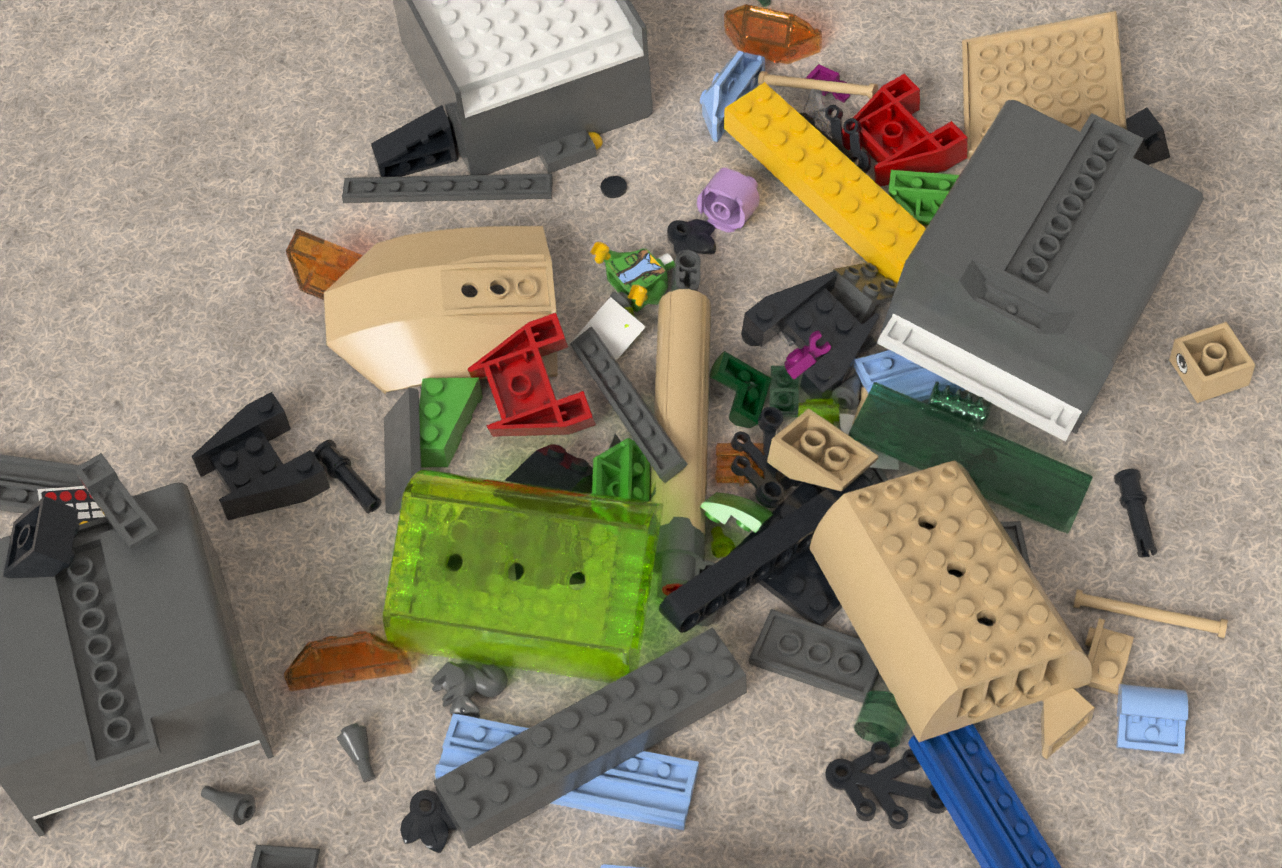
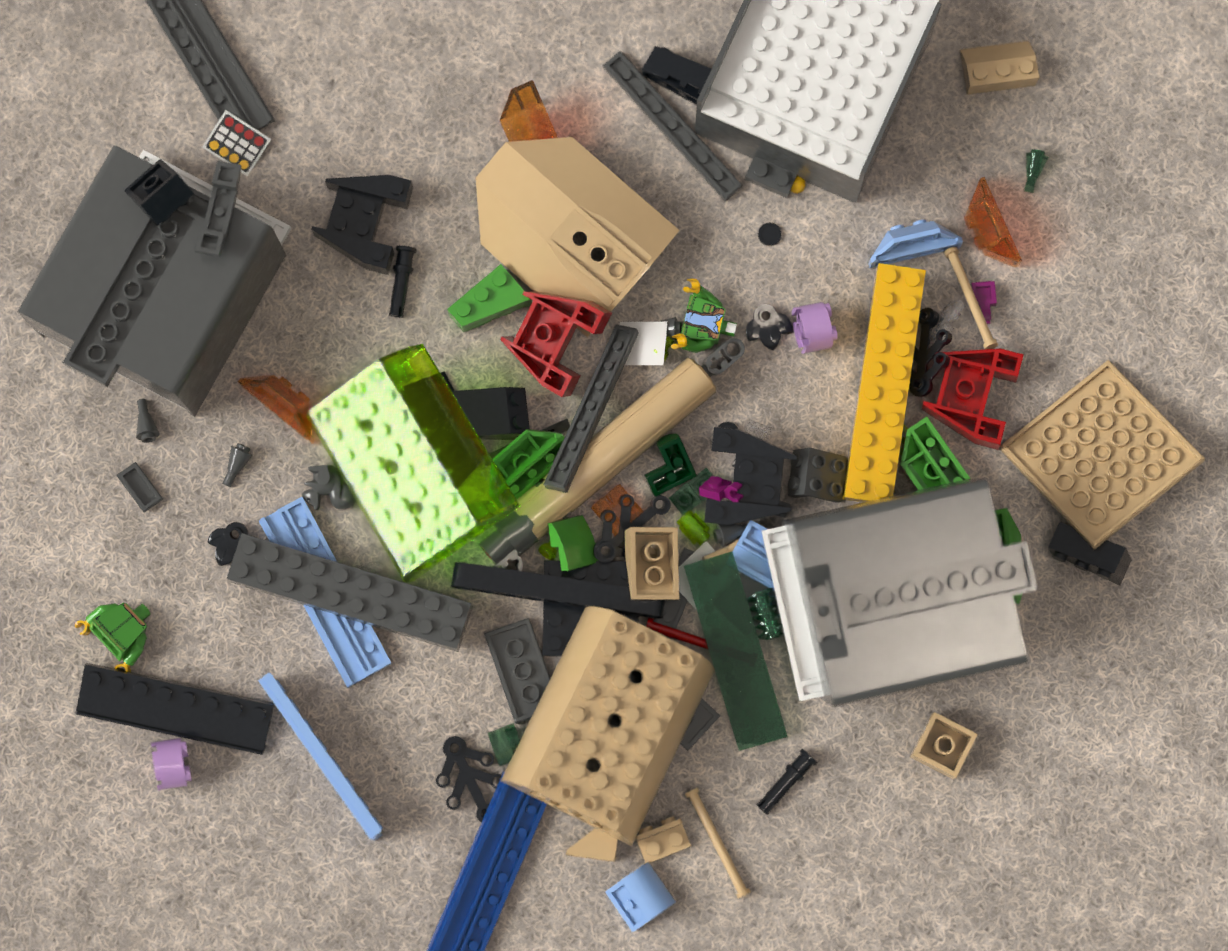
camera: 45 degrees right, 25 degrees up
(401, 448) = (442, 300): dark grey tile -> none

